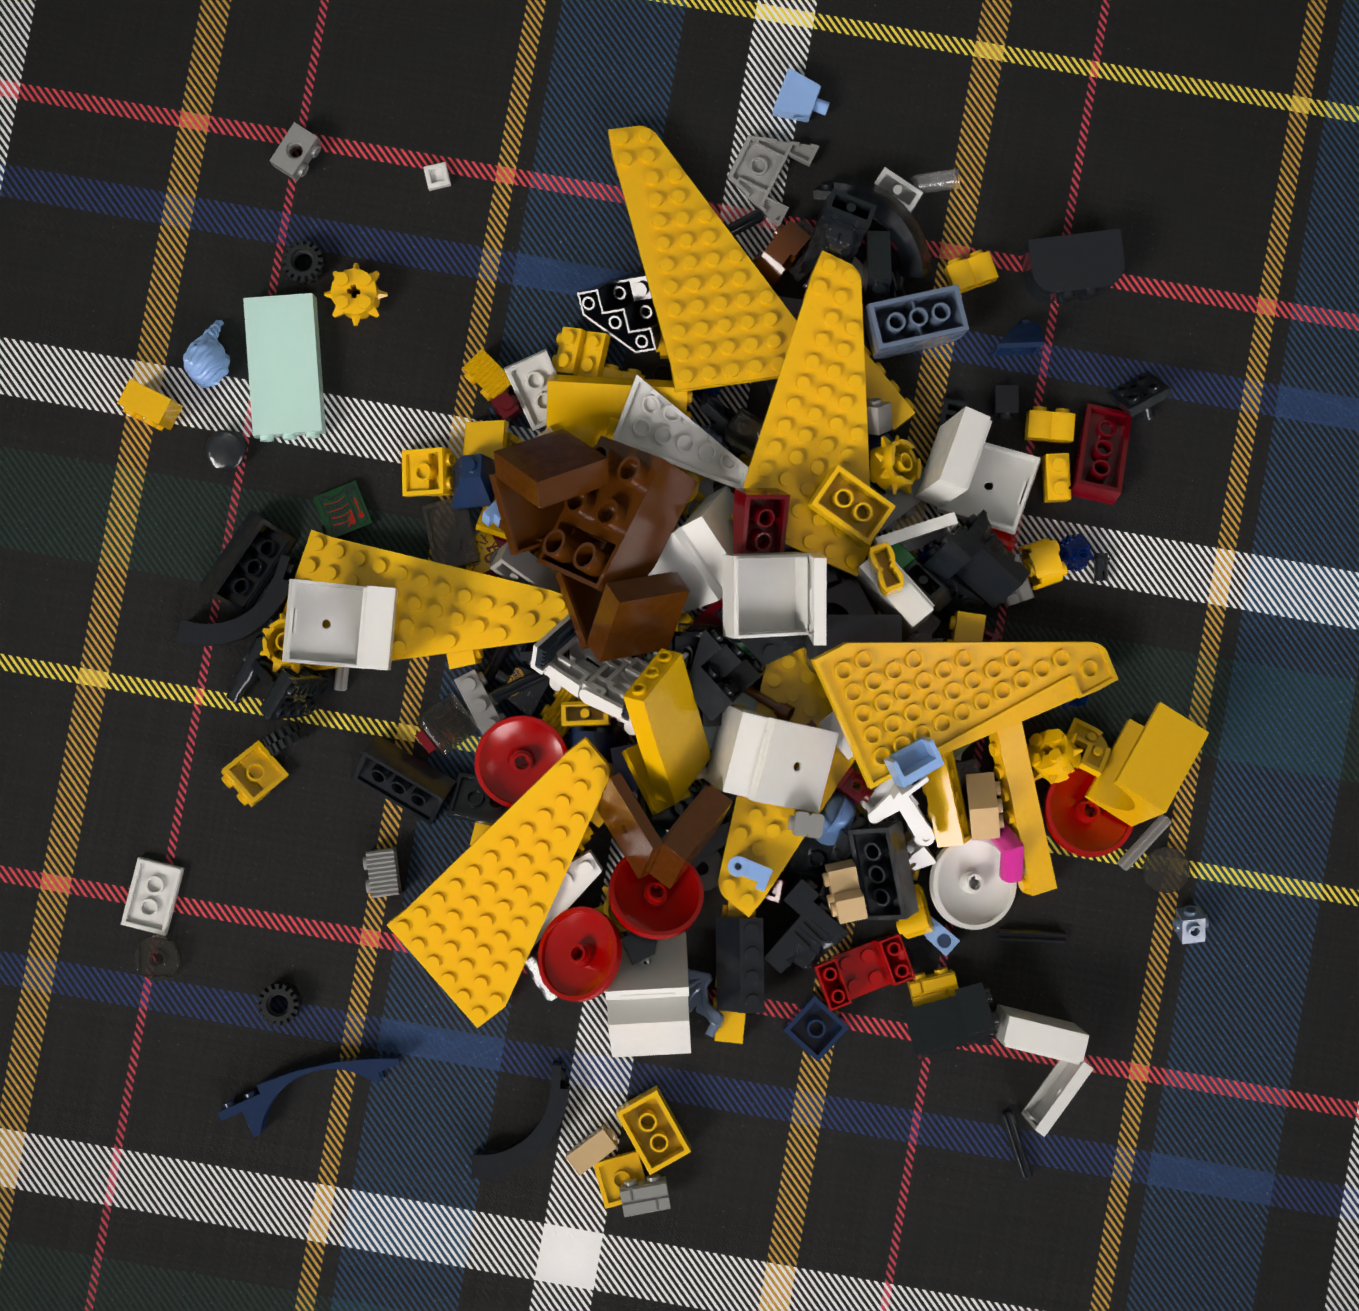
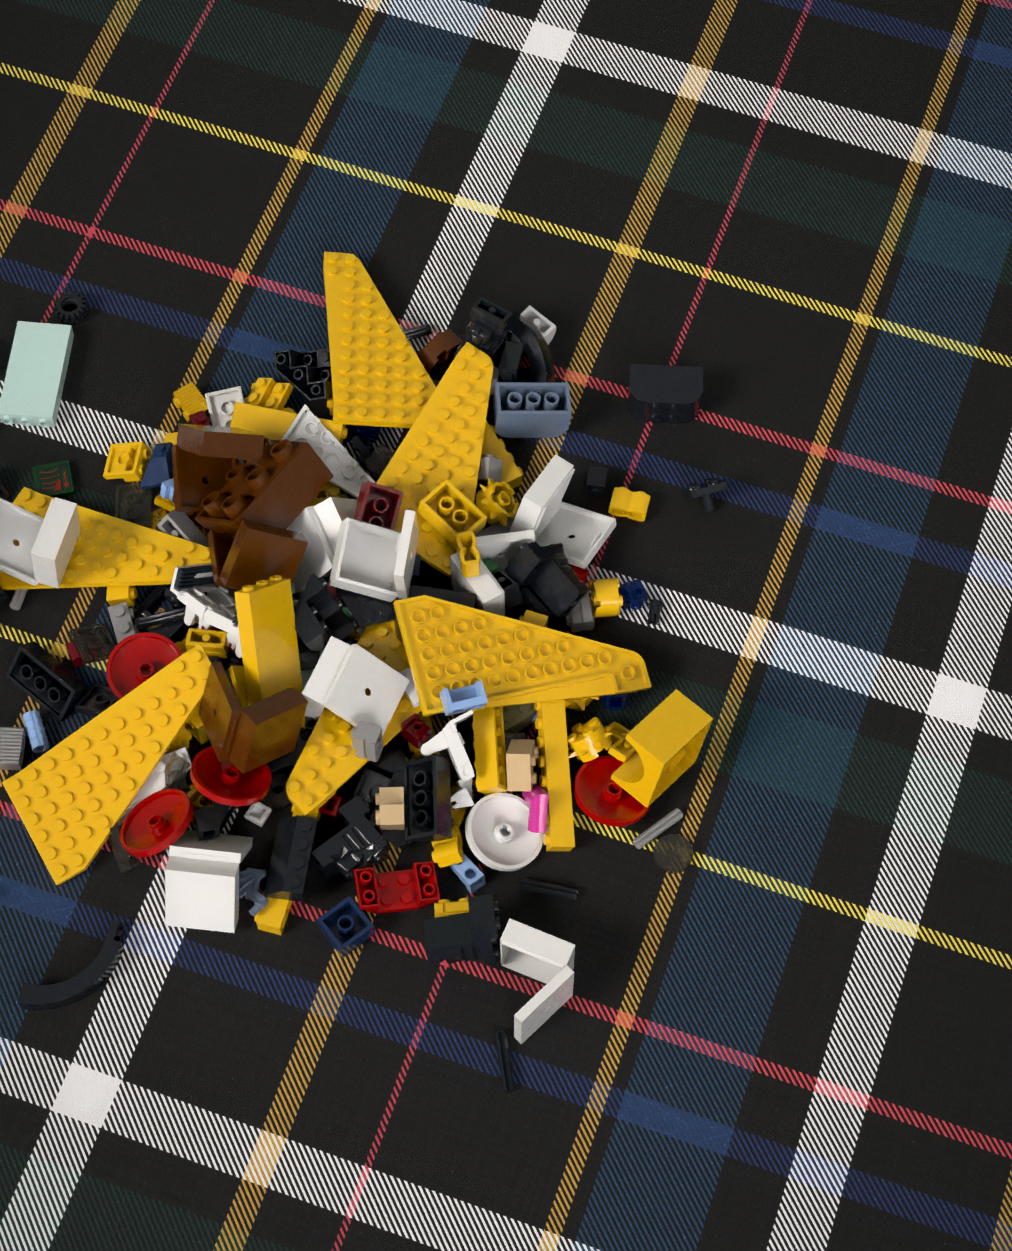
camera: 10 degrees right, 25 degrees down
(296, 139) = (85, 236): light grey brick -> none
(365, 303) = (104, 333): yellow brick -> none
(407, 846) = (35, 731): none -> light blue axle
(437, 176) = (188, 268): white tile -> none
(587, 889) = (176, 772): none -> clear smoke tile
(592, 1149) = (129, 998): tan brick -> none
(612, 1173) = (148, 1031): yellow plate -> none
(644, 1195) = (165, 1041): light grey brick -> none
(653, 1130) = (186, 989): yellow brick -> none
(740, 866) = (315, 773): light blue leg -> none
(759, 168) = (436, 296): light grey wing -> none
(799, 98) = (474, 256): light blue torso -> none
(838, 815) = (392, 755): medium blue piece -> none
(937, 181) = (570, 324): clear brick -> none
(971, 272) = (586, 389): yellow brick -> none
(1022, 339) = (612, 440): dark blue slope -> none
(1056, 477) = (628, 540): yellow brick -> none
(1101, 454) = (667, 531): dark red slope -> none
(1190, 924) = (686, 903): sand blue brick -> none

